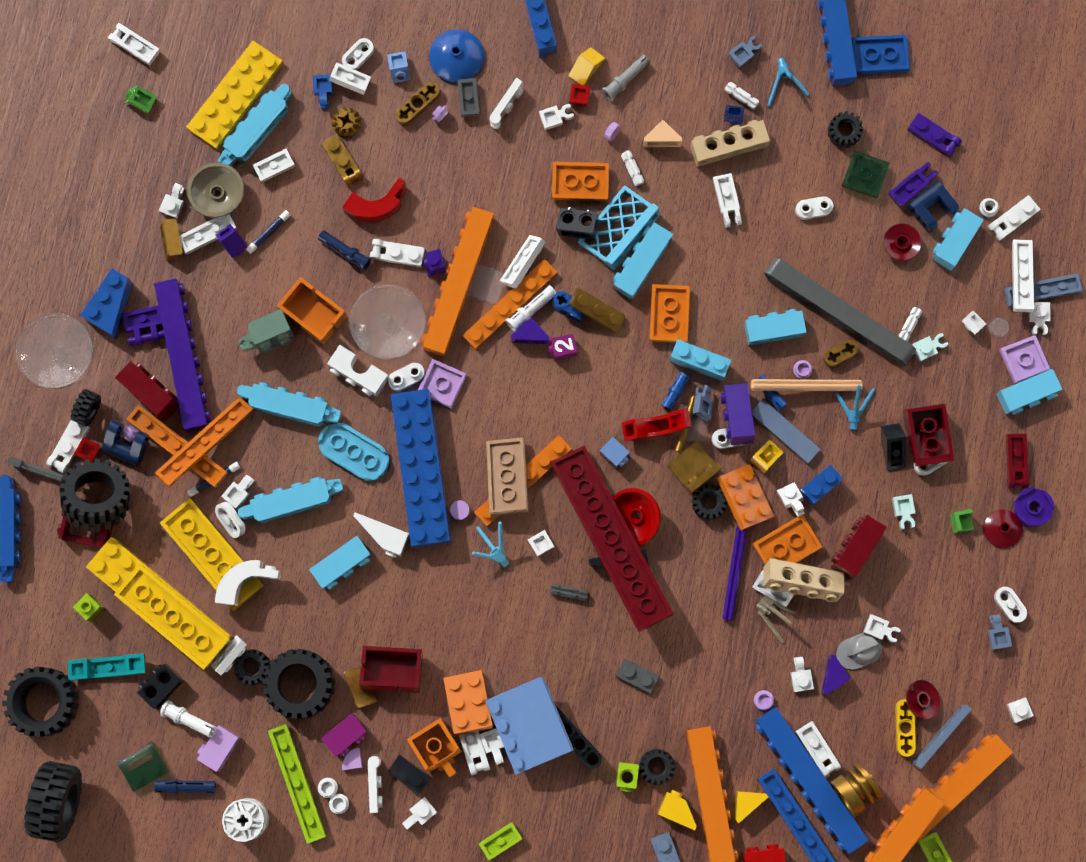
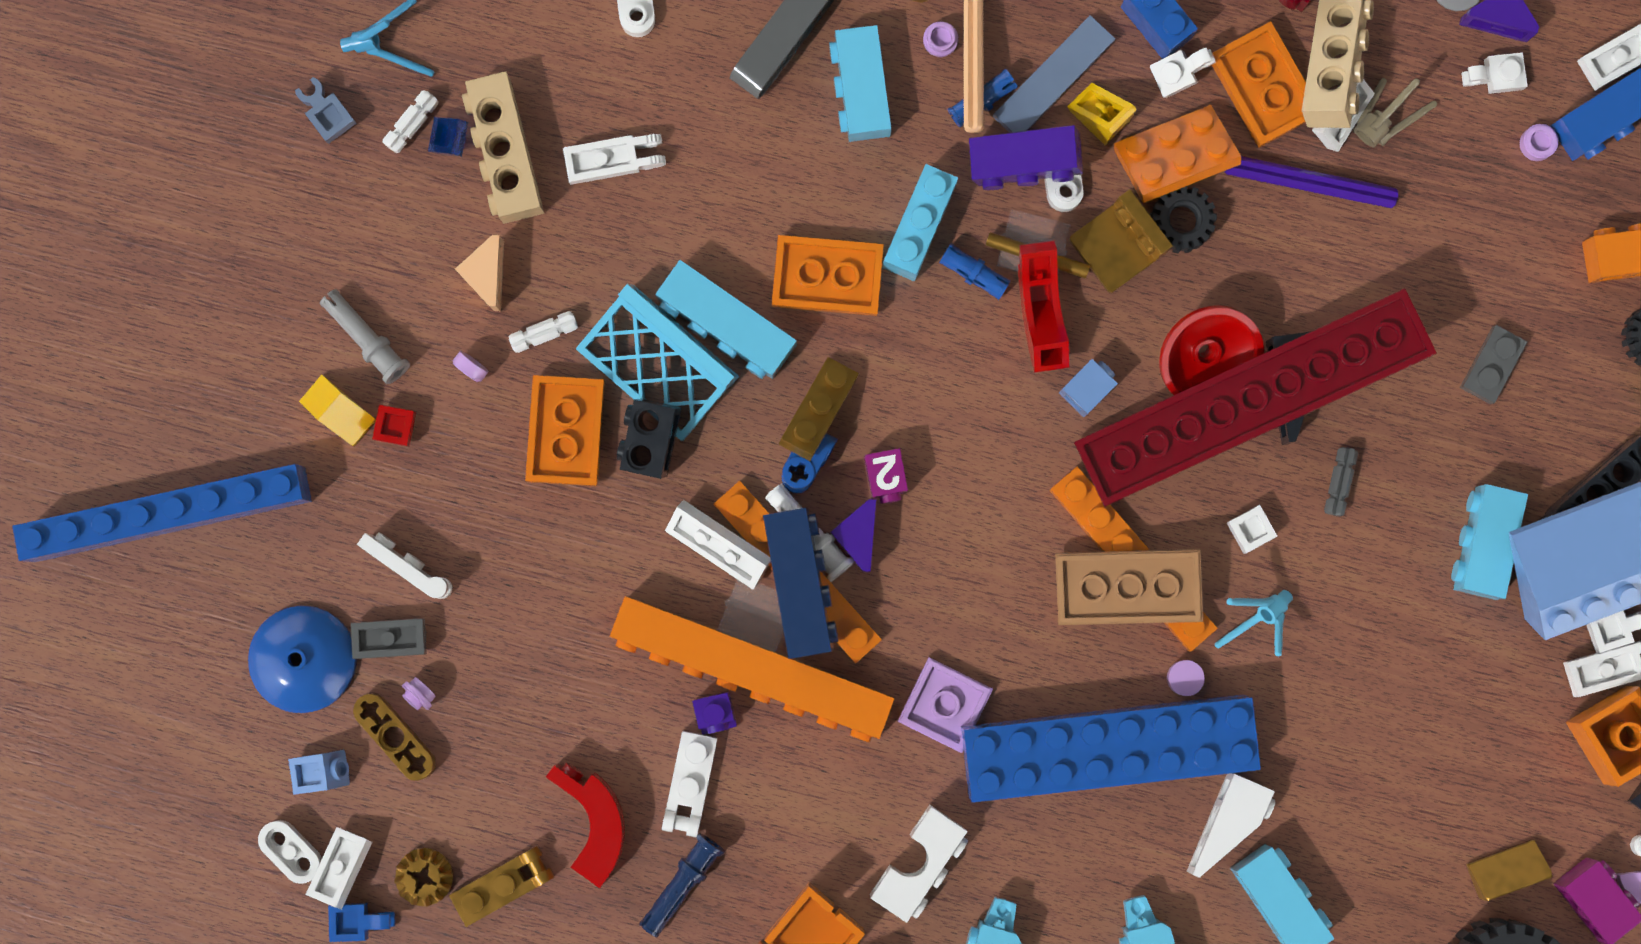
camera: 90 degrees left, 5 degrees up
(353, 451) = (1069, 874): medium azure tile -> none
(387, 321) = (827, 805): clear dish -> none
(391, 669) = (1484, 812): dark red piece -> none
(407, 378) = (929, 772): white plate -> none
(467, 703) = (1543, 673): orange plate -> none
(503, 300) = (799, 584): none -> dark blue brick
(526, 670) = (1485, 541): none -> medium azure brick
(553, 117) = (436, 478): white plate -> none
(702, 404) = (1003, 221): sand blue plate -> none

